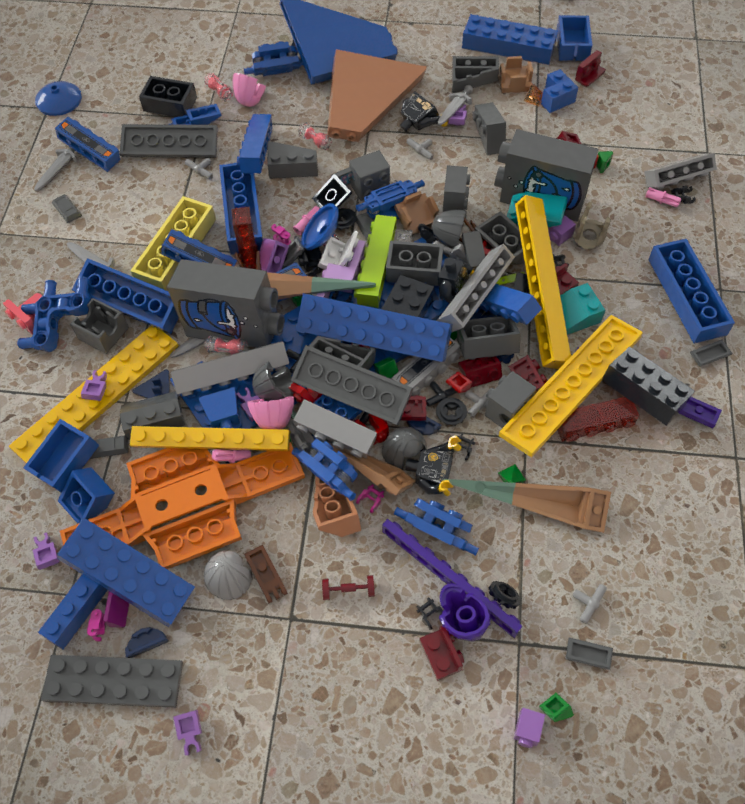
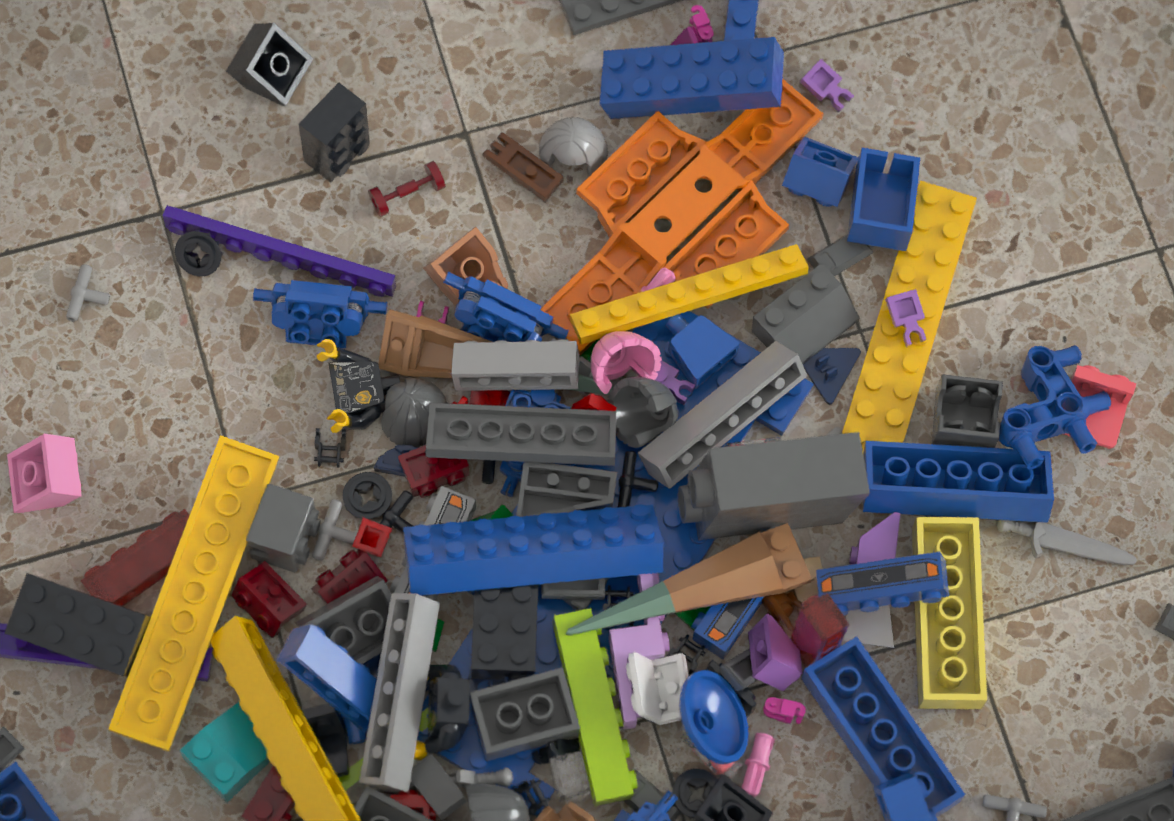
camera: 150 degrees right, 10 degrees up
(144, 640) = (635, 34): dark blue tile -> none
(382, 630) = (335, 132): none -> black brick
(406, 723) = (269, 63): none -> black slope
(435, 609) = (279, 210): black piece -> none
(442, 653) = (256, 159): dark red bracket -> none
(463, 614) = (240, 192): dark purple head -> none
(512, 475) = (243, 427): green slope -> none
(529, 727) = (119, 113): medium lavender brick -> none
(556, 708) = (92, 151): green slope -> none
(570, 504) = (147, 407): medium nougat plate -> none
(589, 653) = (68, 228): dark grey tile -> none
(645, 490) = (44, 474): none -> bright pink slope

